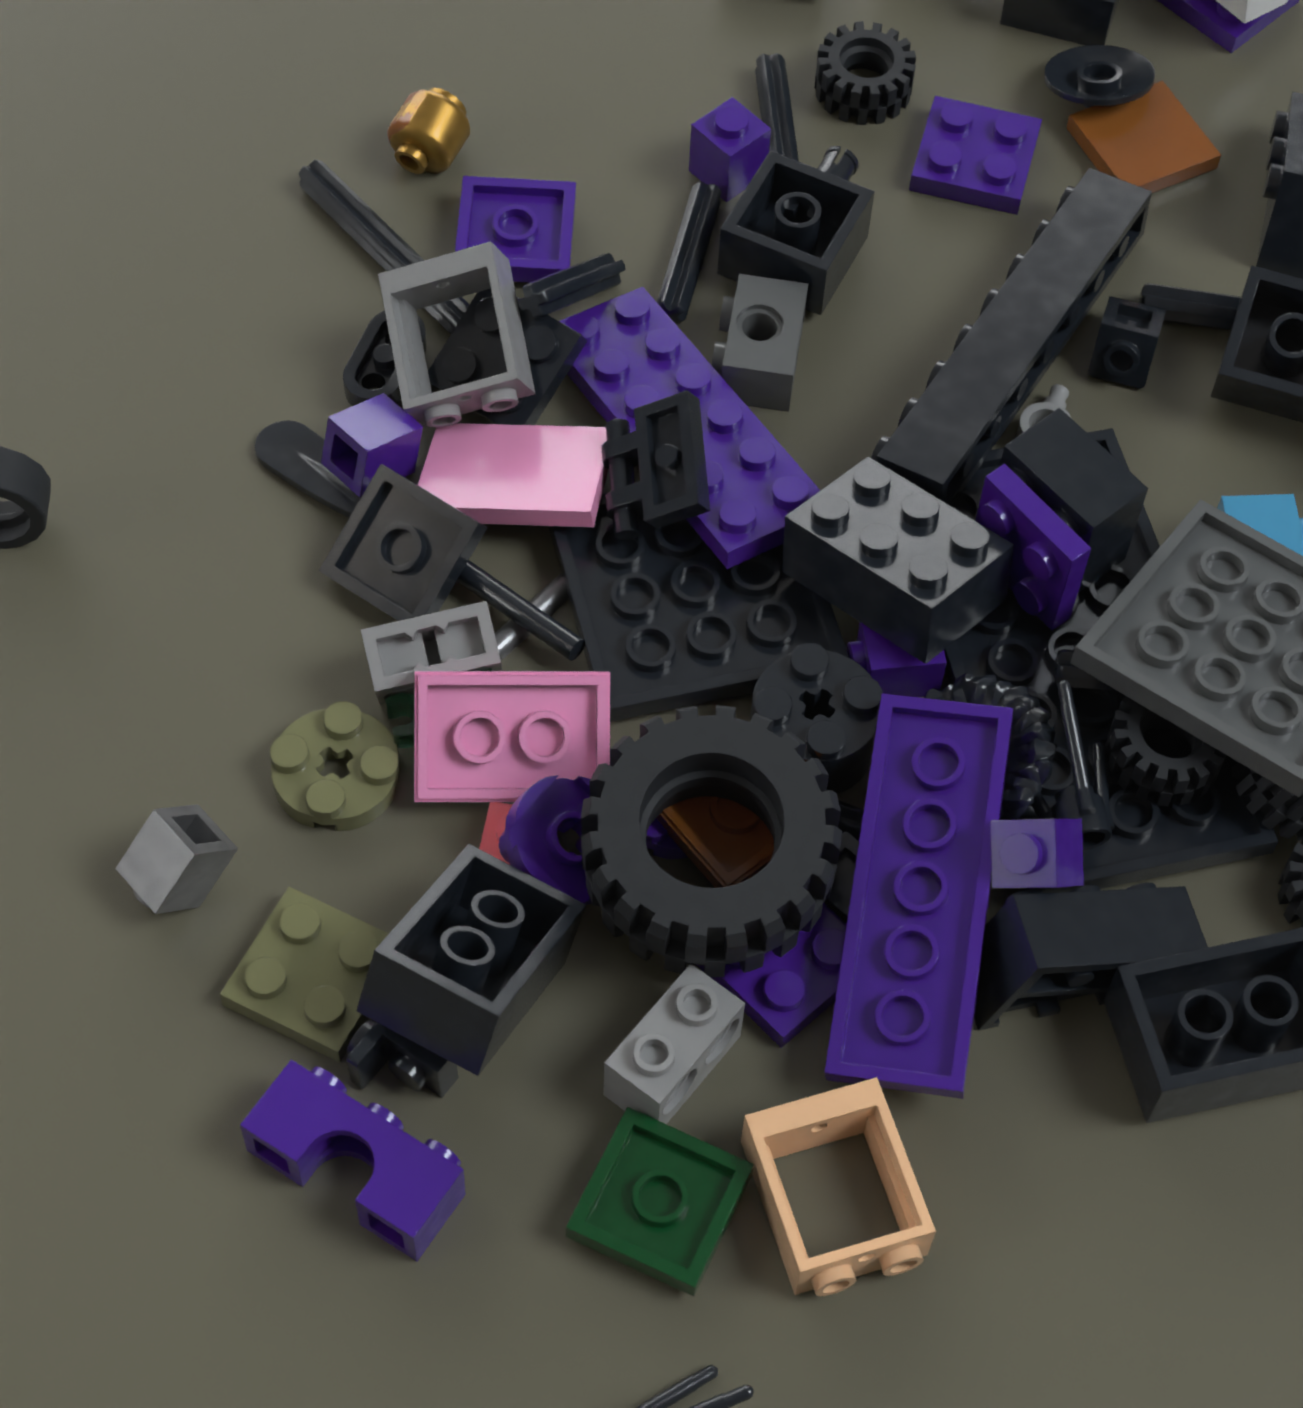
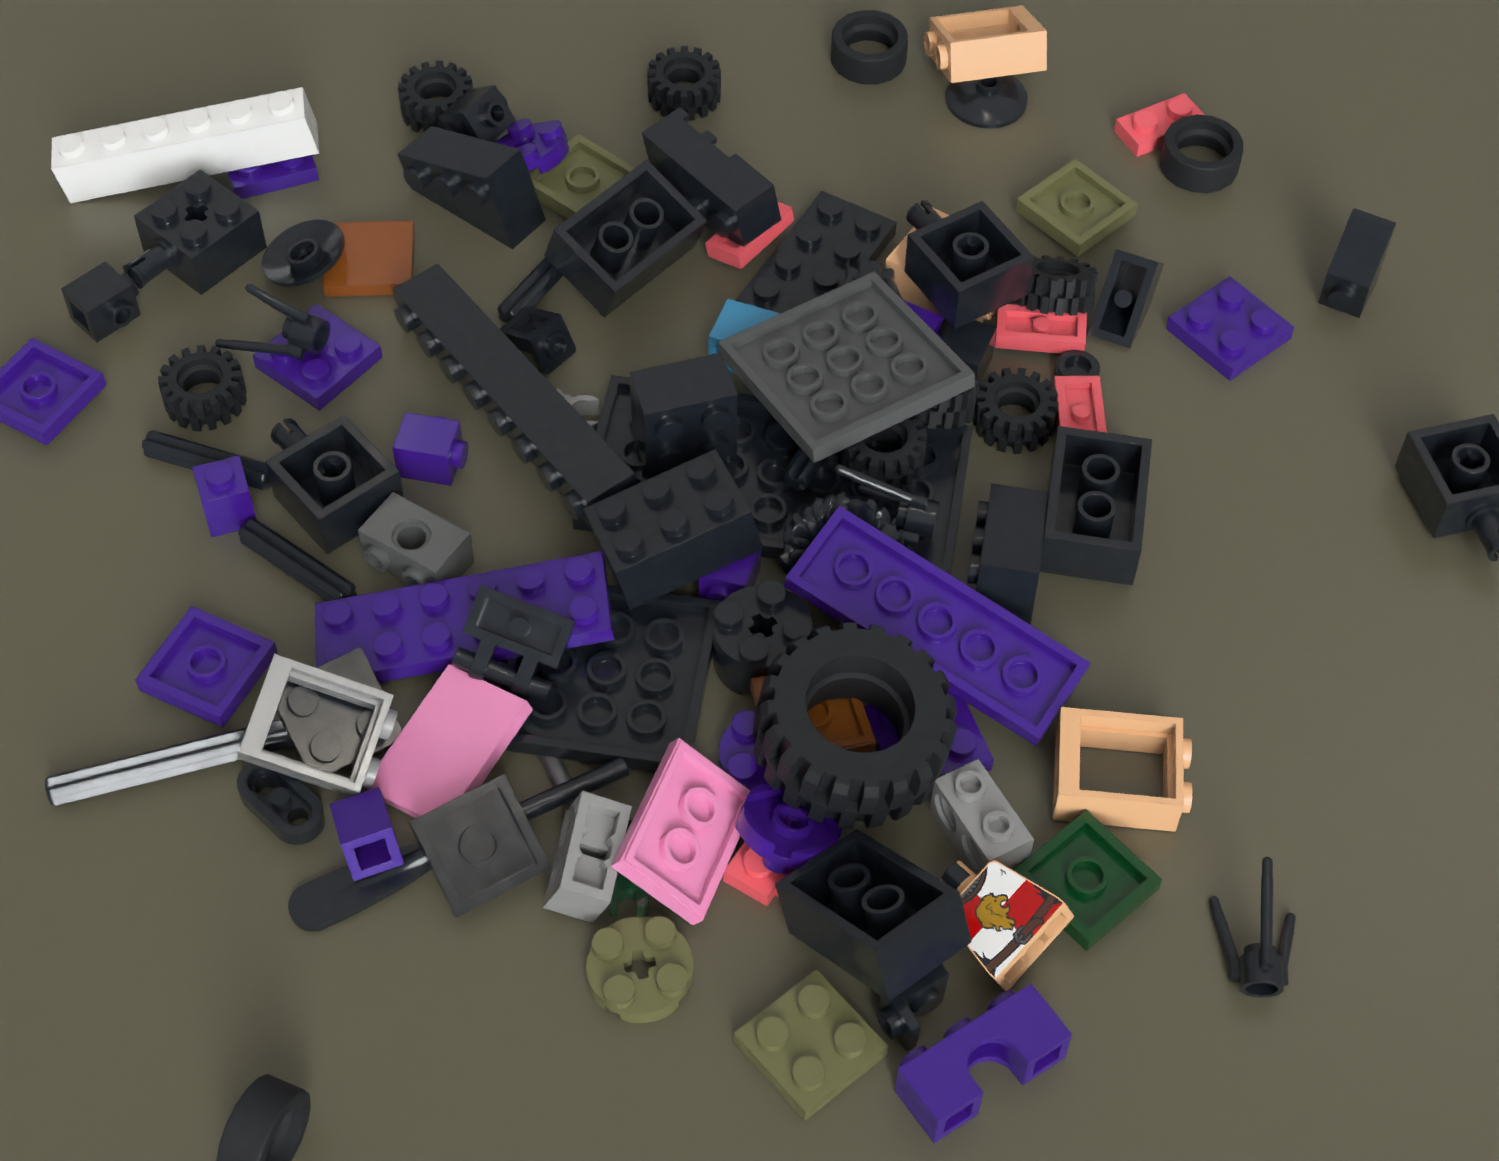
camera: 65 degrees left, 5 degrees down
(176, 858) = (684, 1099): flat silver brick -> none
(429, 131) = (72, 687): pearl gold head -> none
(545, 1113) = (1006, 918): none -> torso
(571, 285) = (302, 639): black axle -> none
(903, 299) = (429, 449): none -> dark purple brick
(978, 115) = (302, 330): none -> black plant
(1037, 853) = (946, 542): dark purple brick -> none
(1046, 551) = (728, 430): dark purple plate -> none

